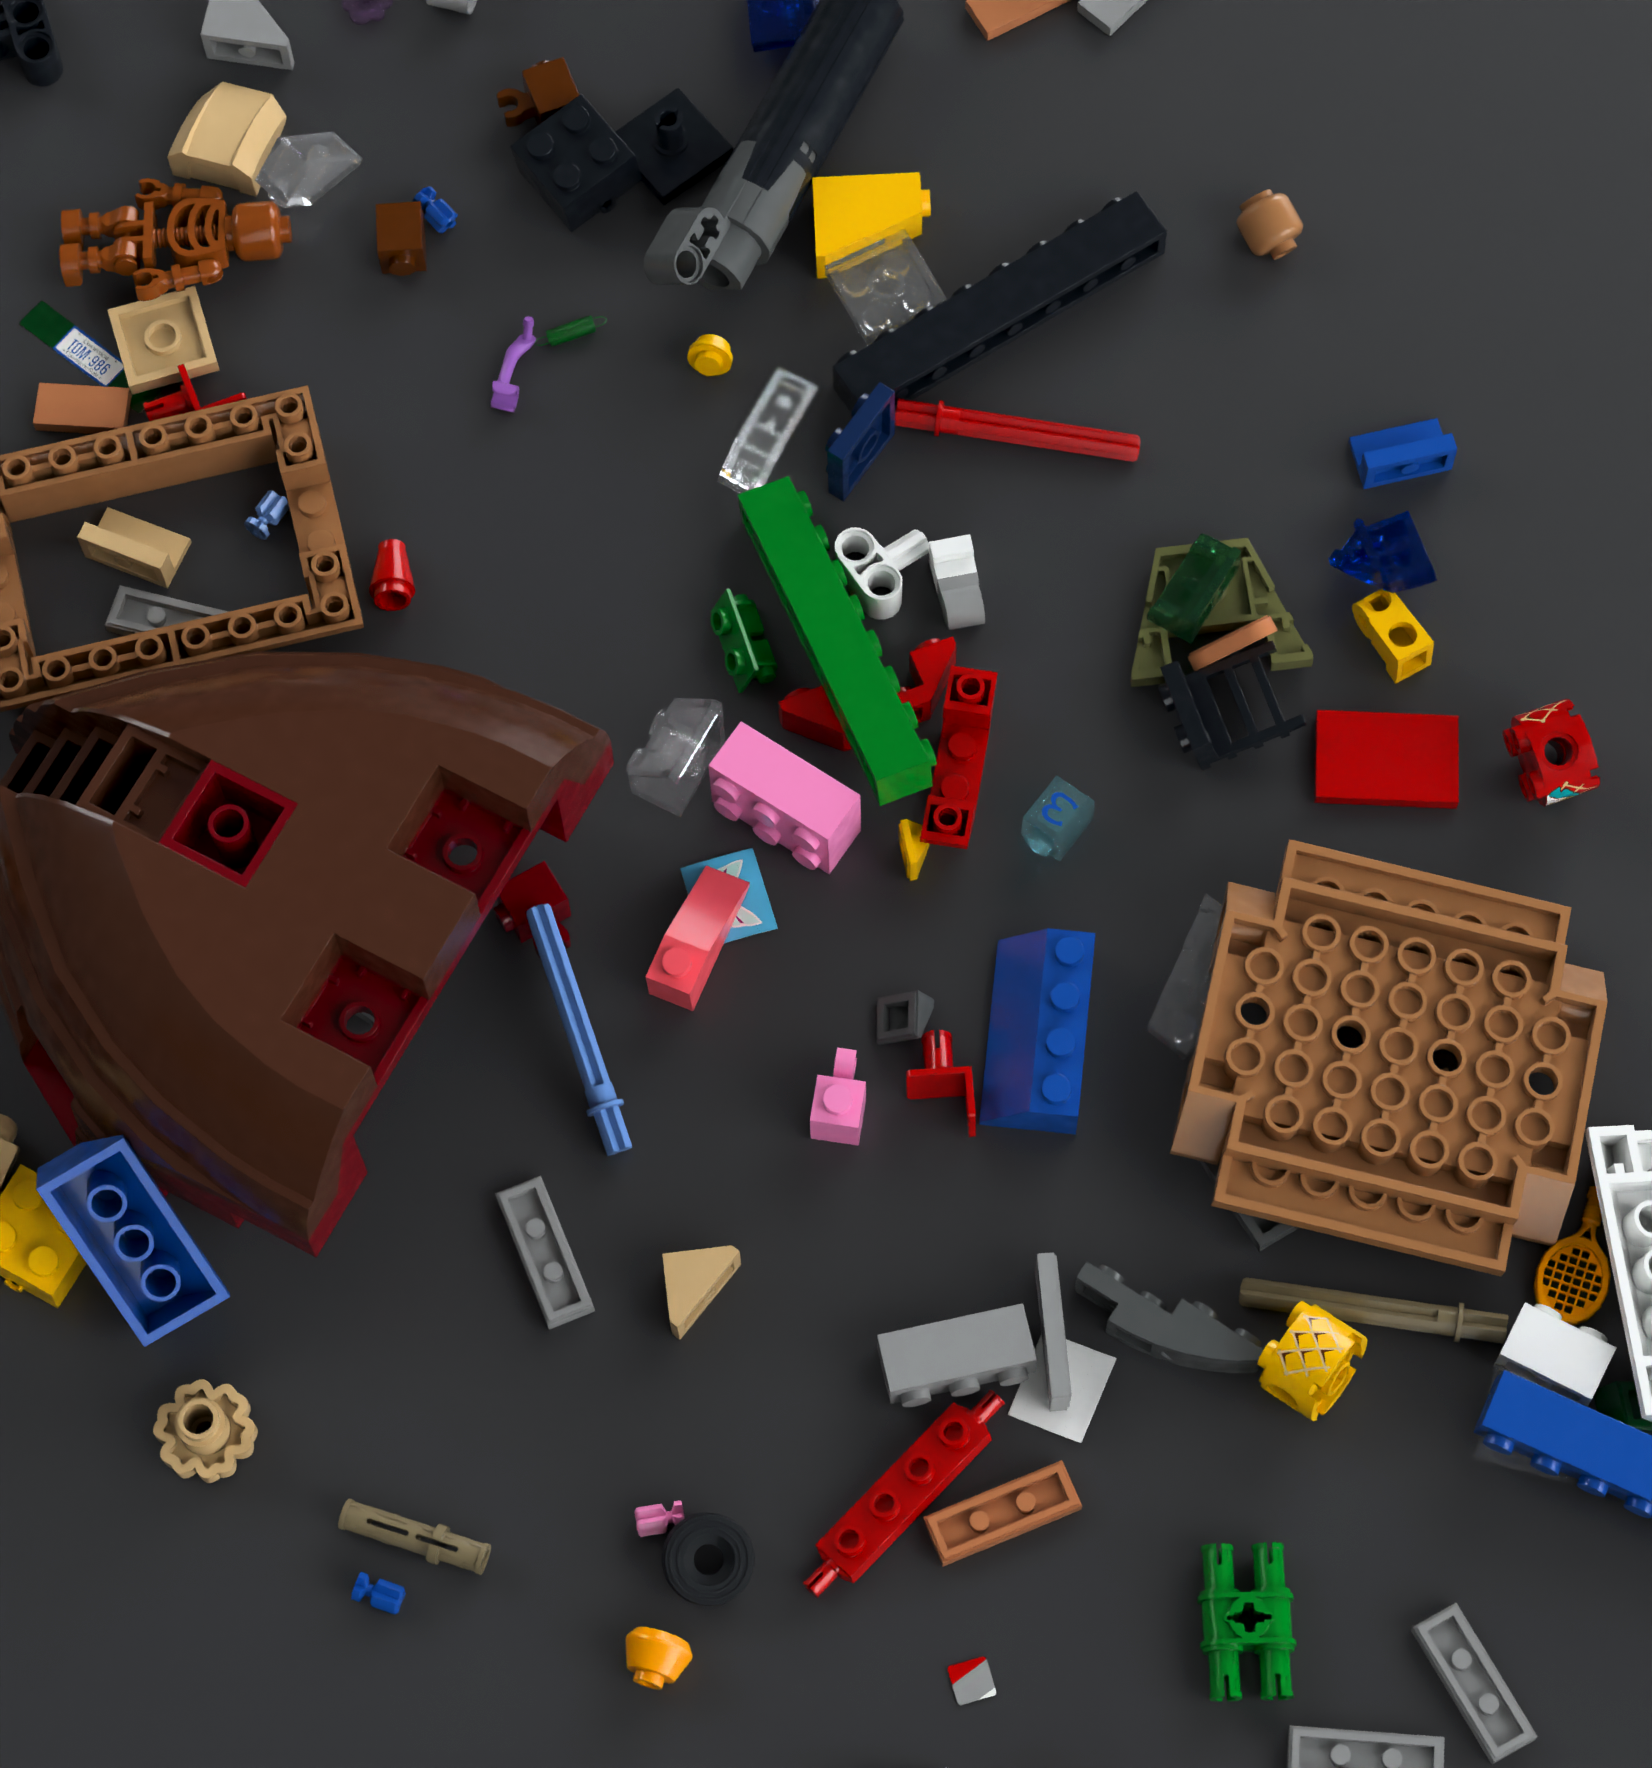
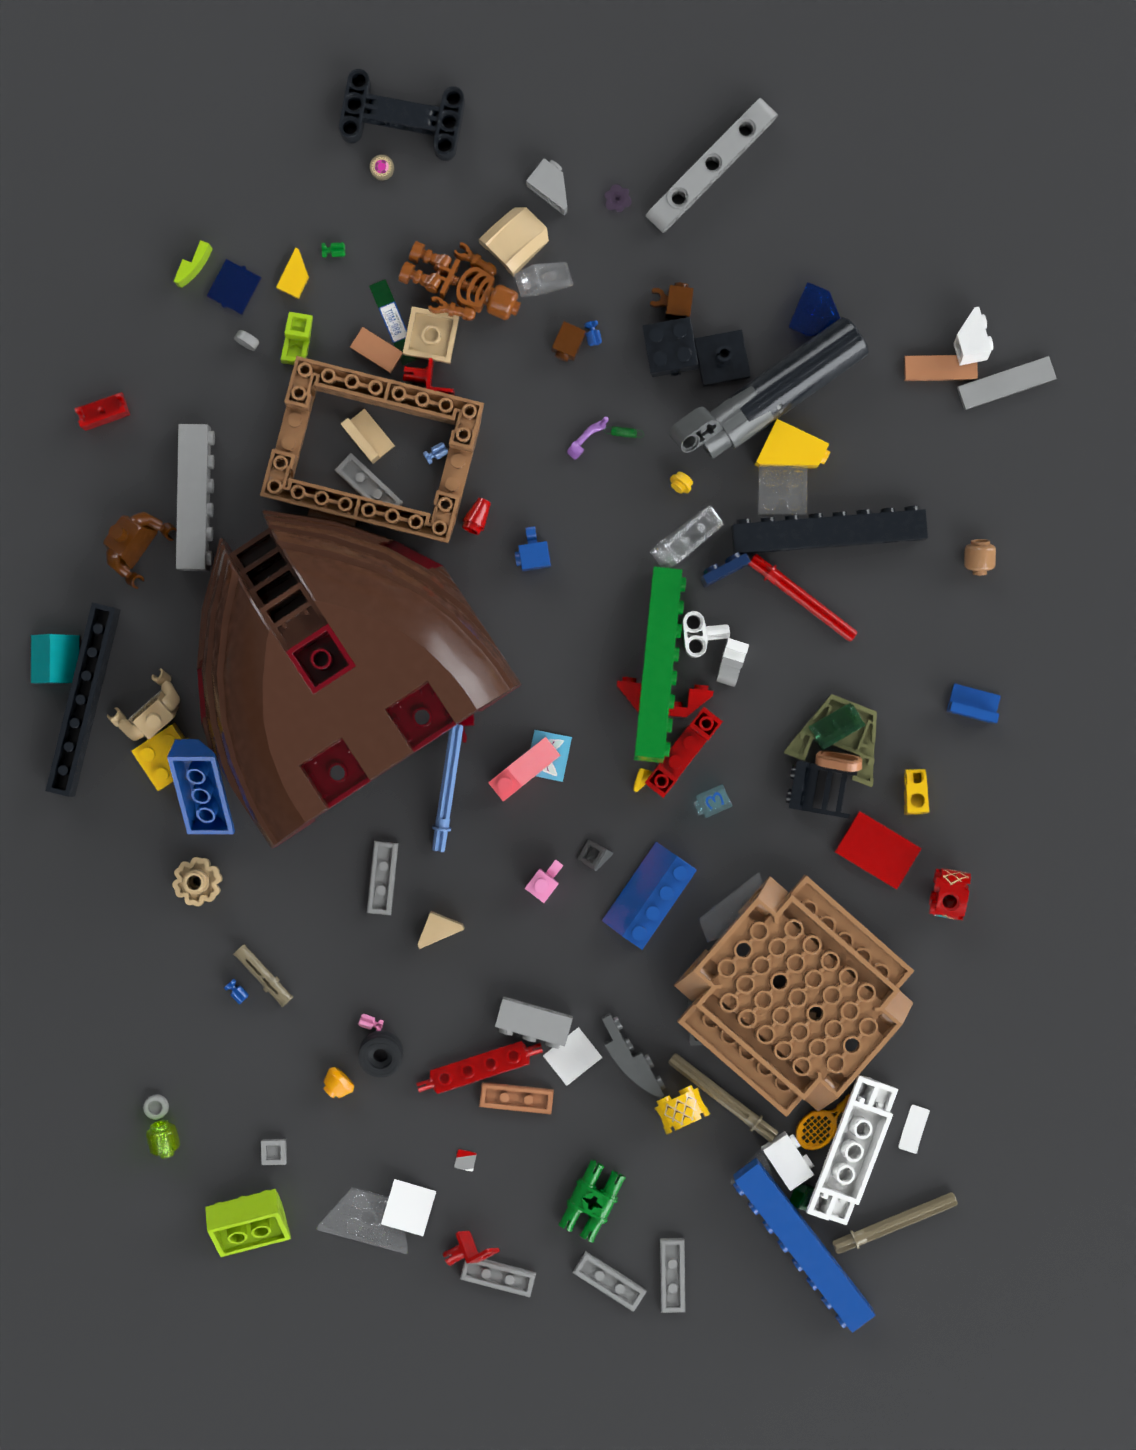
camera: 25 degrees right, 20 degrees up
(521, 583) = (534, 554): none -> blue brick
(677, 753) = (558, 678): clear slope -> none
(735, 623) = (620, 625): green hinge -> none
(784, 799) = (594, 729): bright pink brick -> none
(941, 1077) = (595, 892): red bracket -> none
(1053, 1331) = (580, 1034): light grey tile -> none
(1386, 555) = (934, 755): clear blue slope -> none

